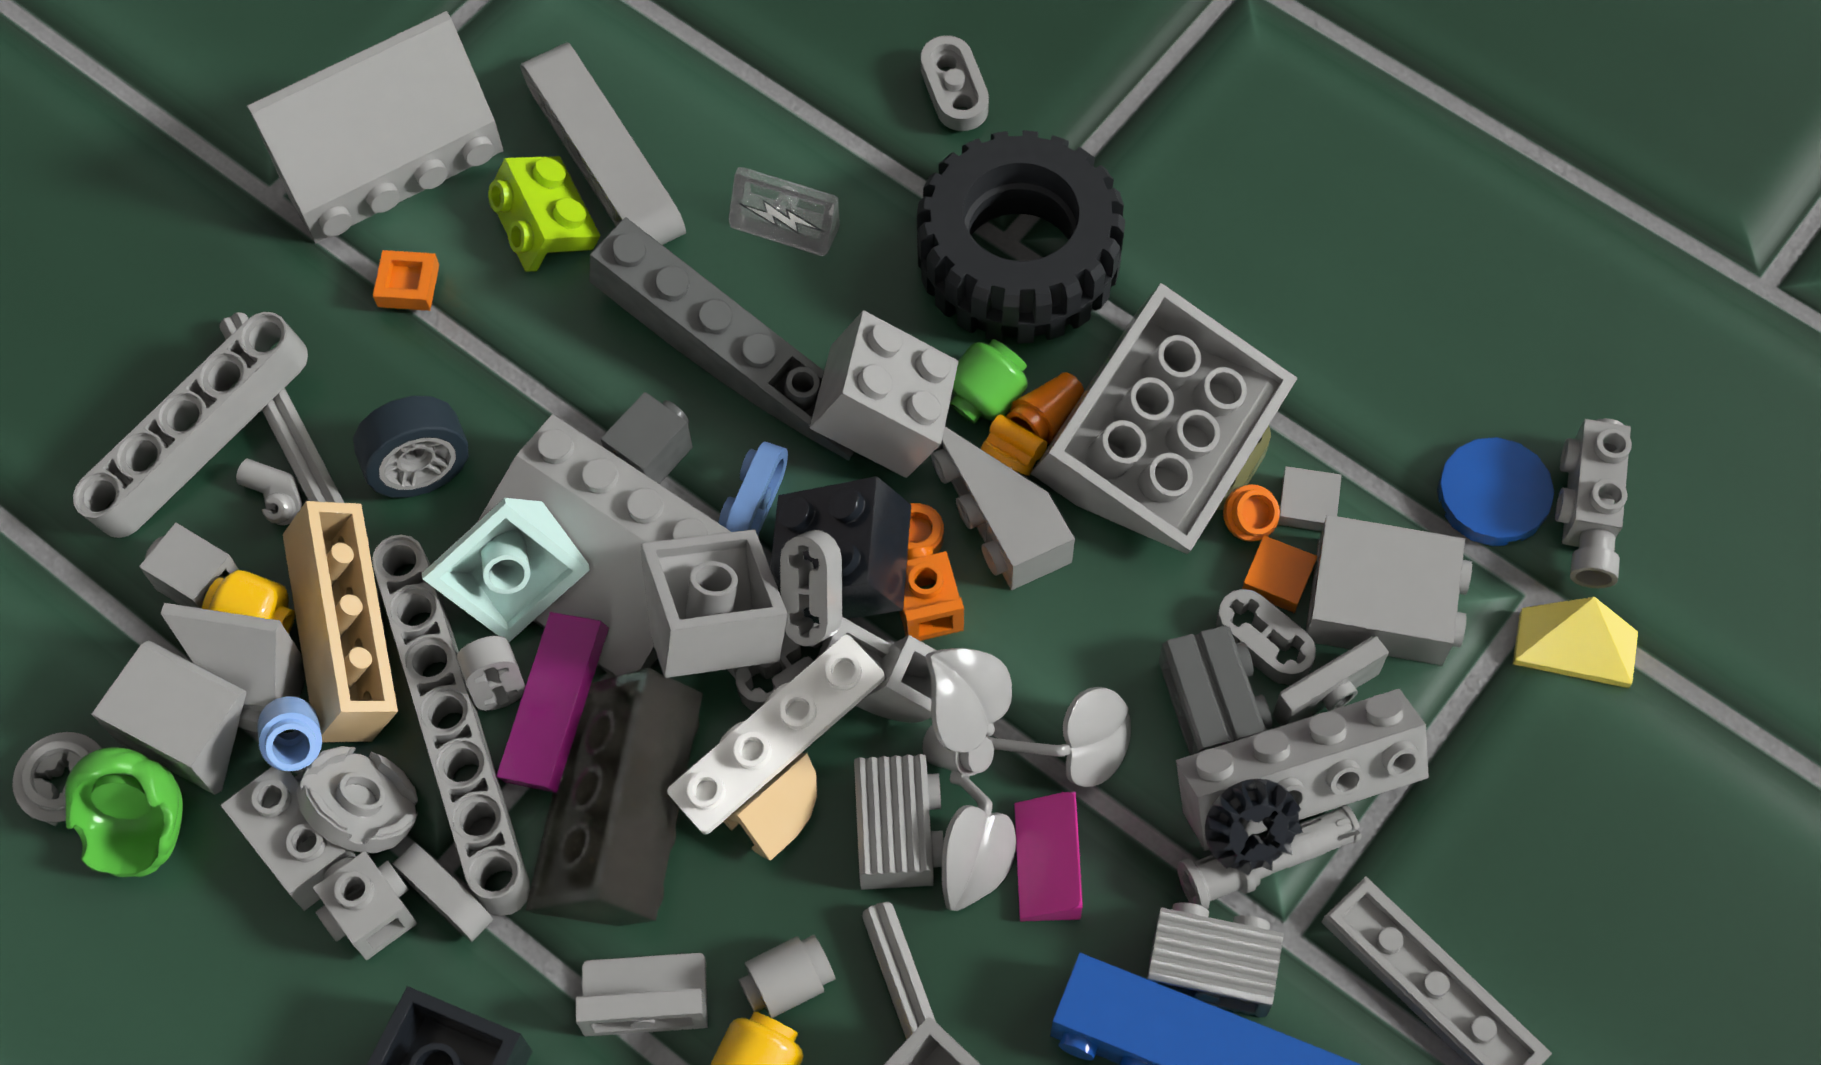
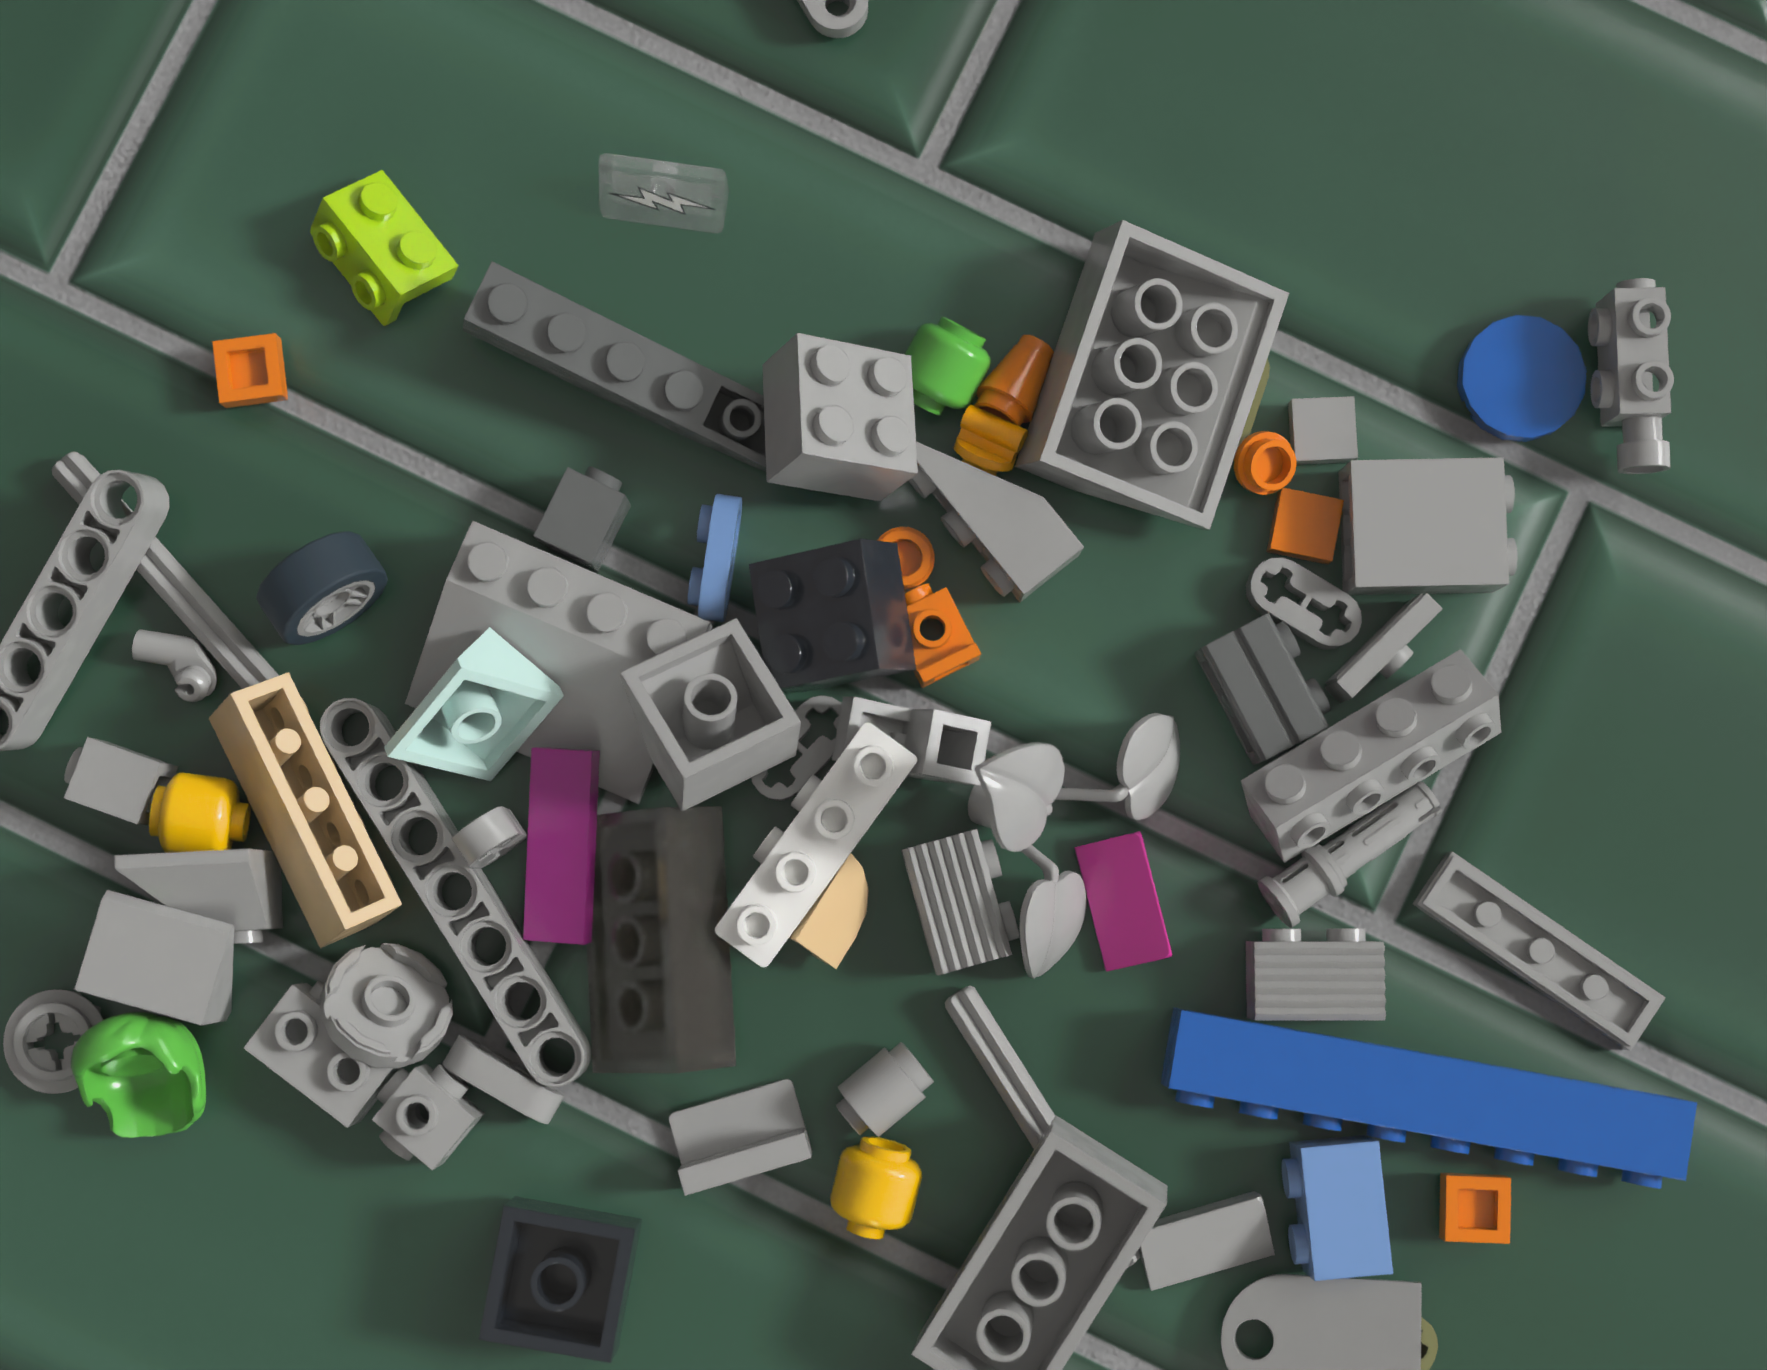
camera: 20 degrees left, 20 degrees up
(293, 749) = (295, 961): light blue brick -> none
(378, 127) = (166, 198): light grey slope -> none
(600, 143) = (428, 149): light grey beam -> none
(811, 588) = (831, 683): light grey beam -> none
(1030, 179) = (961, 99): black tyre -> none
(1256, 802) = (1332, 825): black gear -> none
(1577, 641) = (1630, 541): light yellow slope -> none

